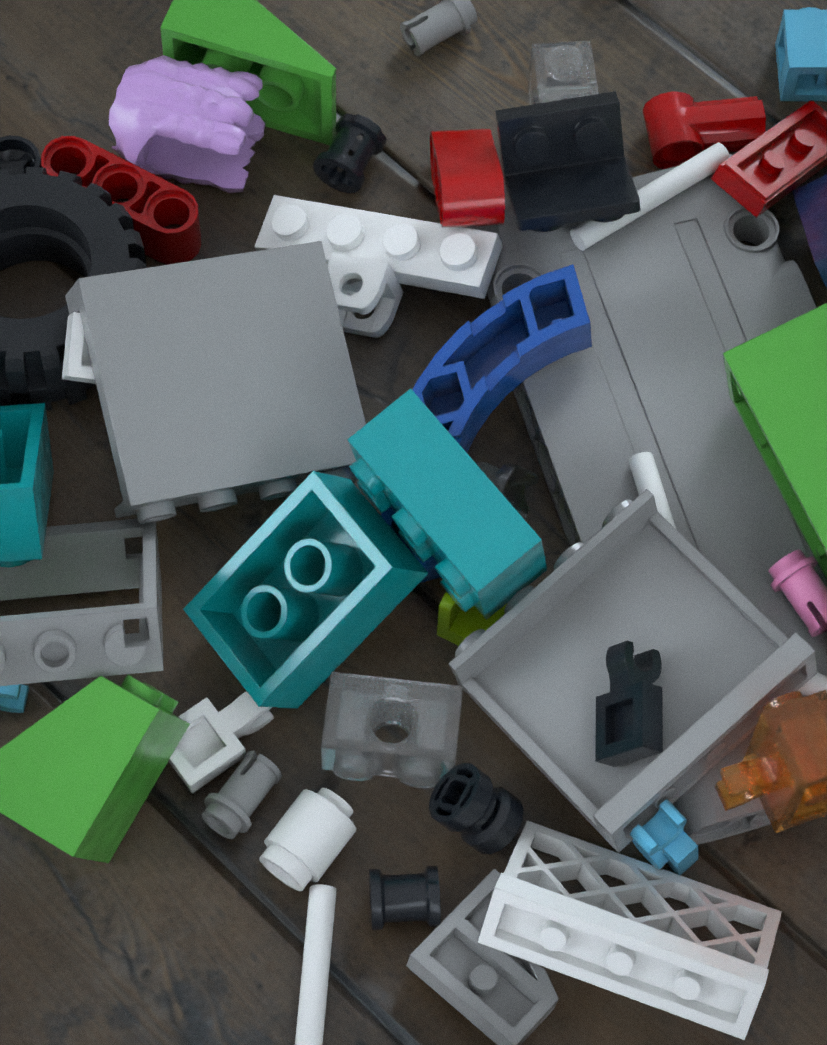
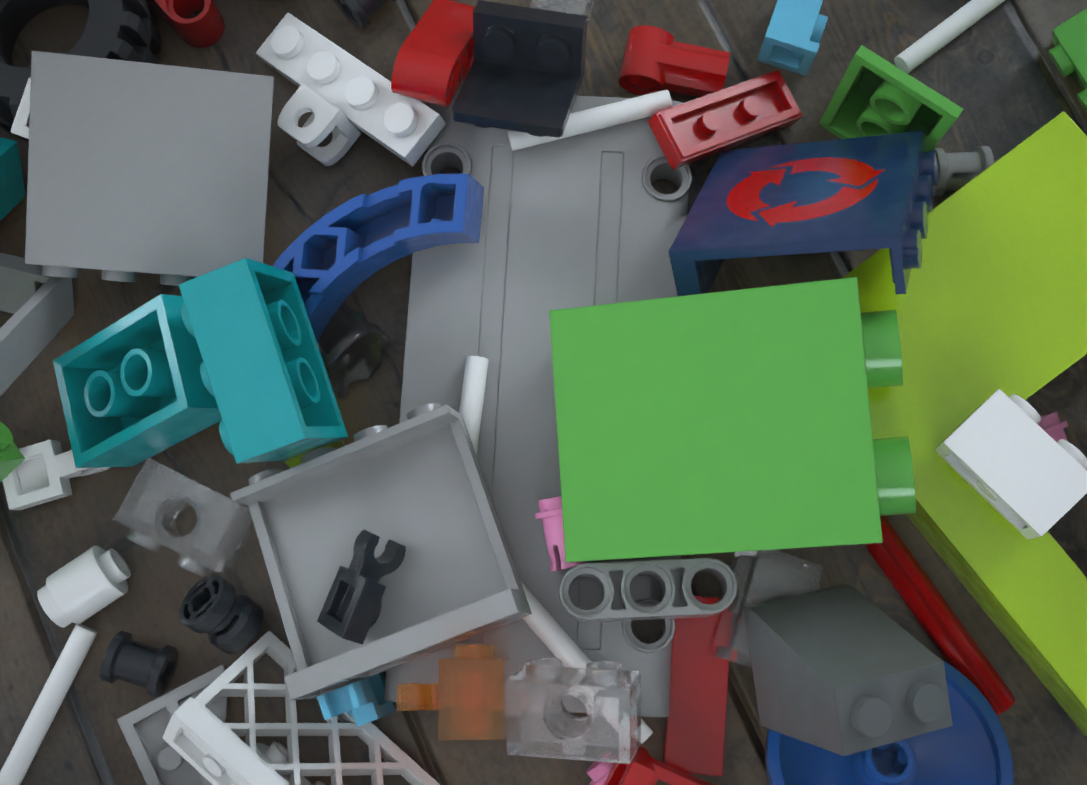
camera: 25 degrees right, 15 degrees up
(241, 795) = (50, 529): light grey pin -> none

